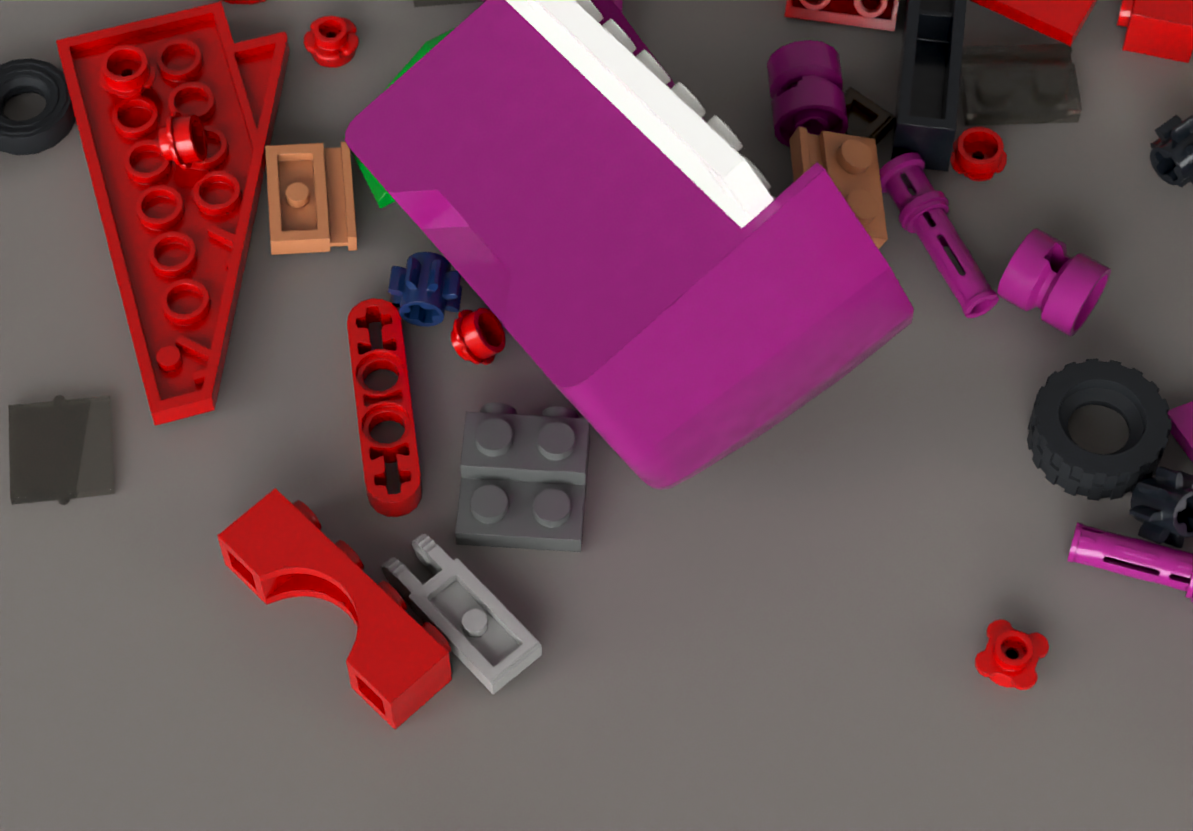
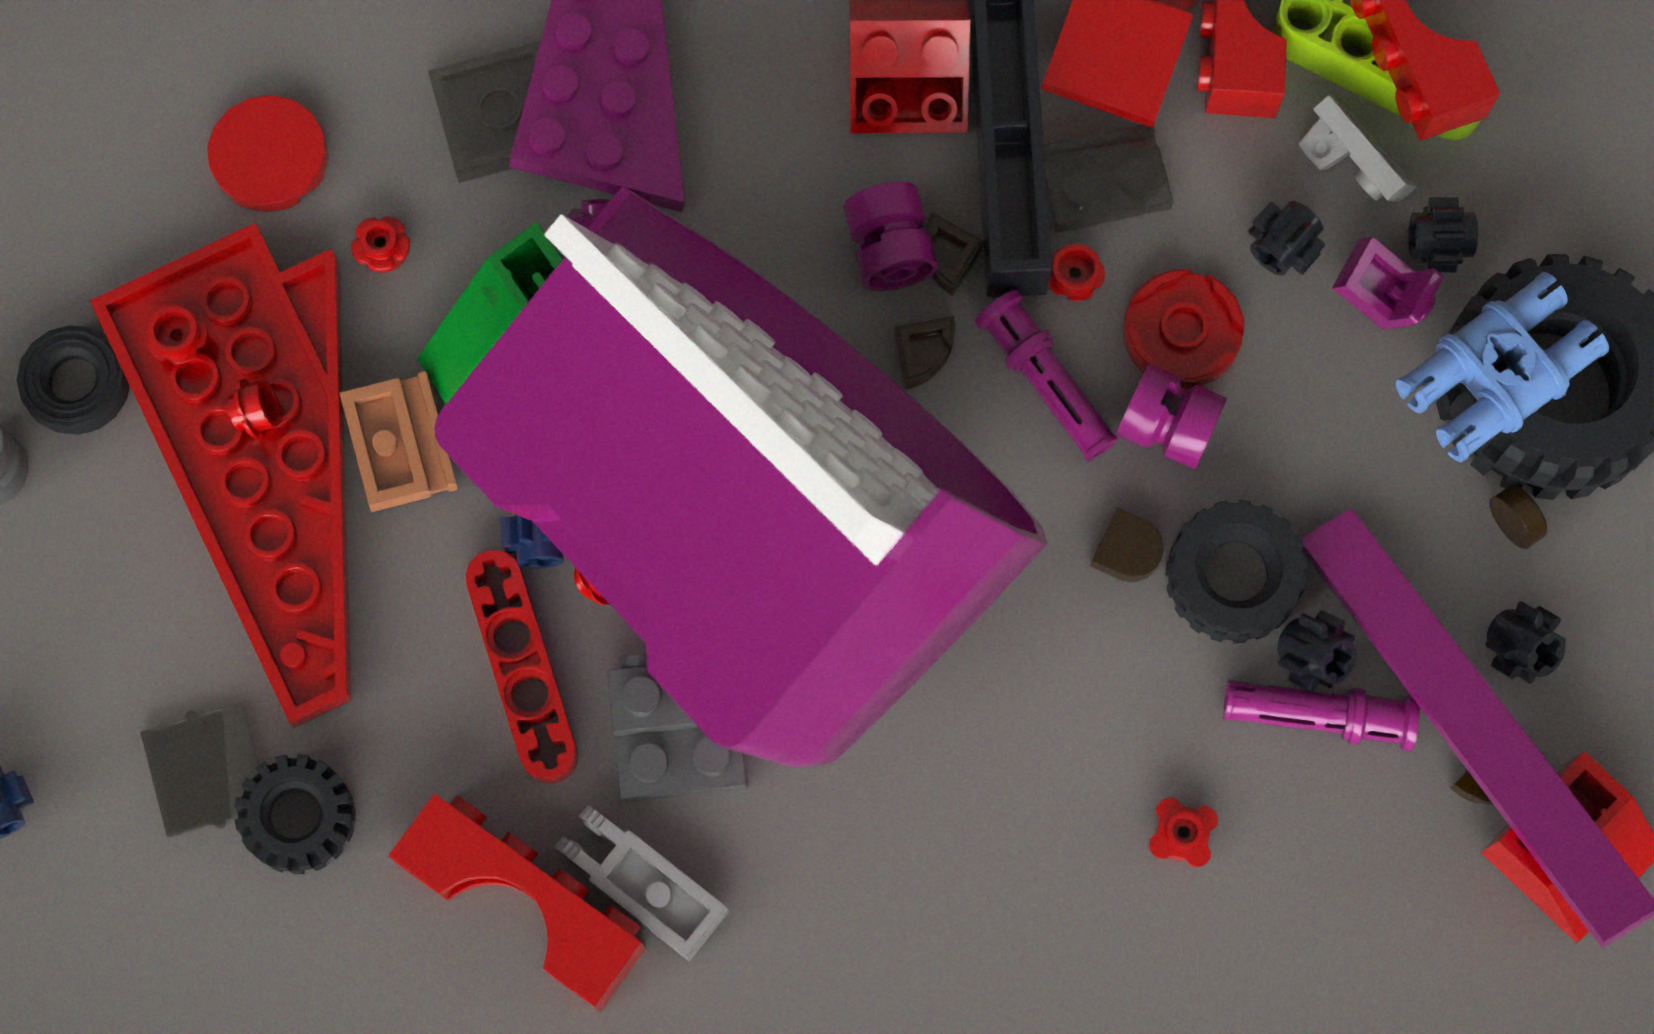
camera: 10 degrees left, 15 degrees up
(130, 464) = (267, 787): none -> black tyre
(852, 167) = (939, 345): nougat plate -> none
(994, 396) = (1129, 548): none -> dark brown tile
(1081, 211) = (1184, 326): none -> red tile

